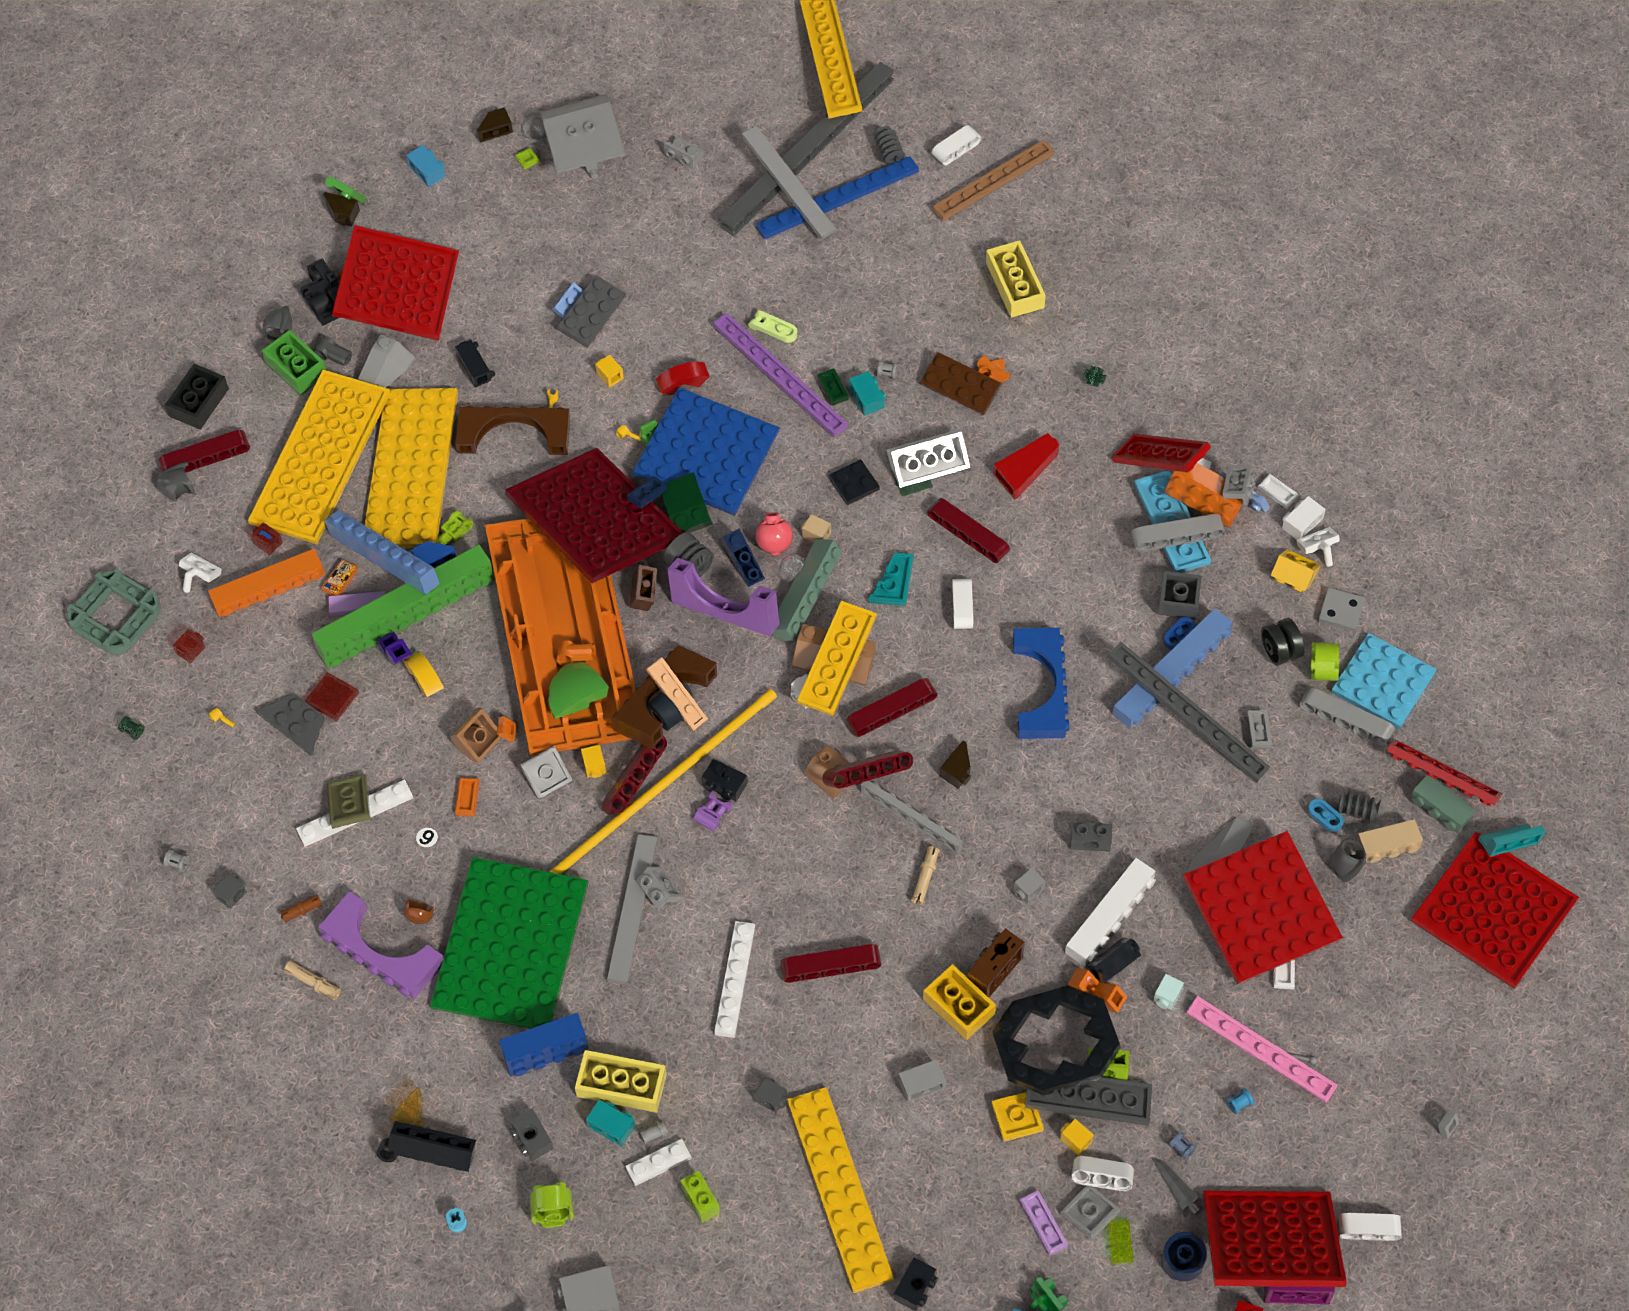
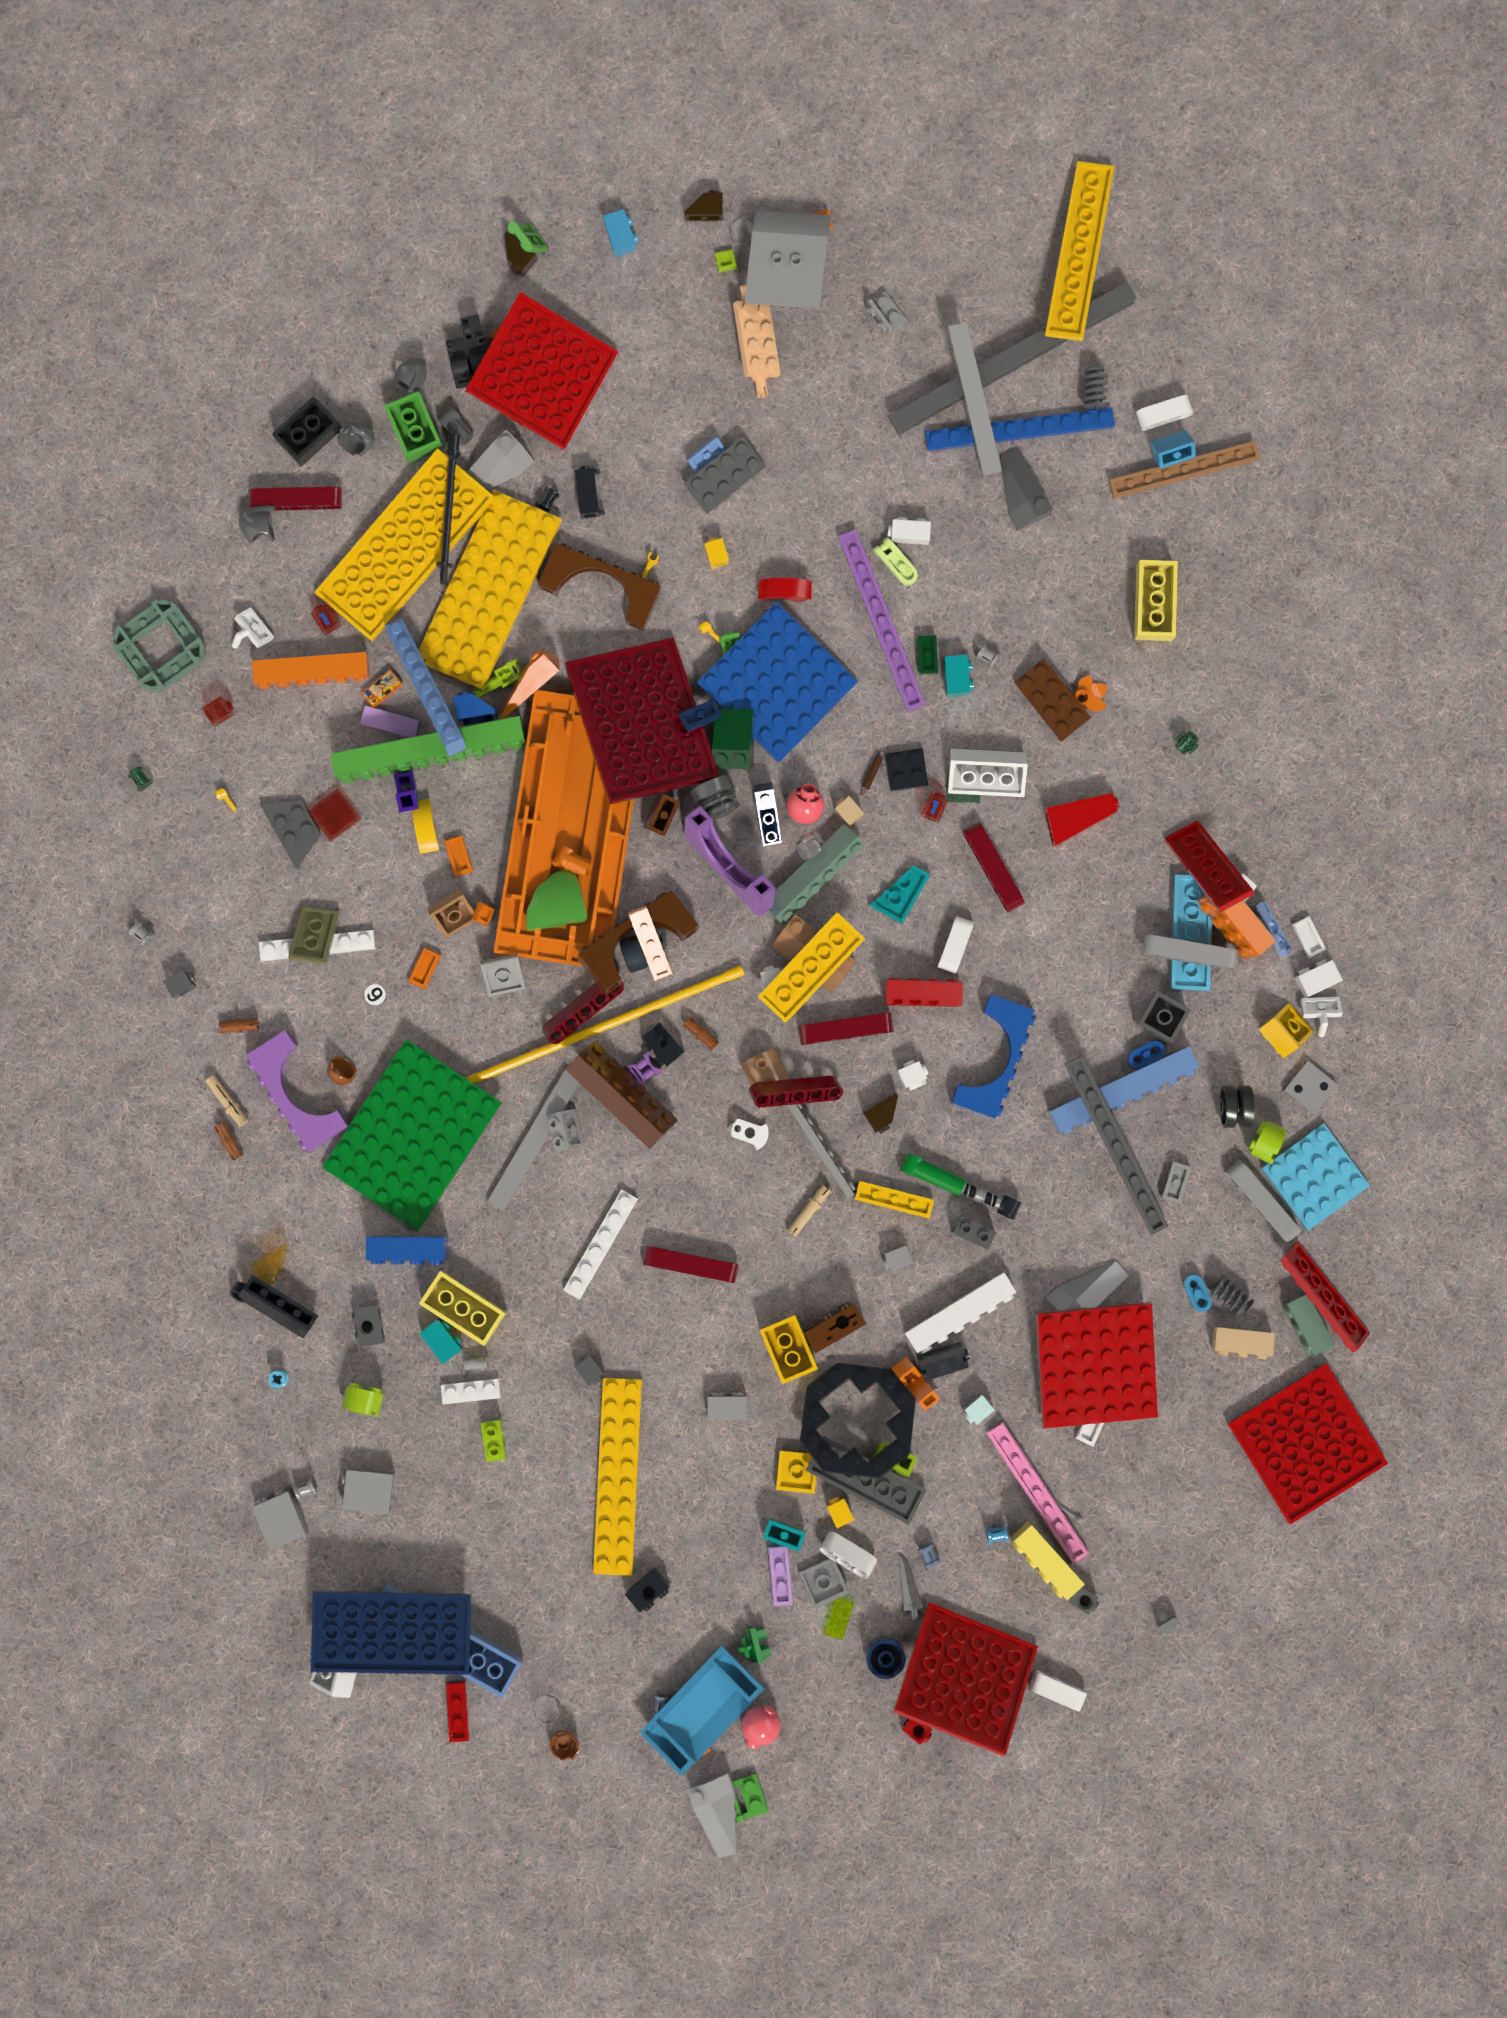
camera: 20 degrees right, 25 degrees up
(244, 387) = (356, 438): none -> dark grey hair
(326, 1015) = (228, 1141): none -> dark orange pin
(339, 367) = (452, 454): none -> black bar
(439, 377) = (547, 499): none -> black bush
(464, 691) = (458, 856): none -> orange tile
(480, 511) = (537, 672): none -> wedge
(579, 204) = (756, 342): none -> light nougat plate
(593, 761) = (551, 979): yellow brick -> none
(702, 831) = (621, 1094): none -> reddish brown brick
(756, 759) = (701, 1033): none -> dark orange pin
(776, 299) = (910, 531): none -> white brick
(824, 494) = (872, 772): none -> reddish brown piece
(849, 824) = (760, 1133): none -> white piece
(864, 241) = (1024, 495): none -> dark grey wedge
(893, 501) = (934, 807): none -> clear red brick
(949, 651) = (923, 993): none -> red wedge
(971, 724) = (913, 1075): none -> white brick
(976, 166) = (1173, 449): none -> dark azure brick
(1002, 836) = (894, 1199): none -> yellow plate
(1010, 800) = (958, 1185): none -> piece
(1030, 1176) = (784, 1534): none -> teal brick
(1239, 483) = (1267, 933): light grey bracket -> none
(1299, 1101) = (1044, 1557): none -> light yellow brick
(1347, 1135) = (1090, 1606): none -> dark grey brick
(1348, 865) = (1195, 1350): dark grey piece -> none
(1511, 839) = (1354, 1383): teal panel -> none

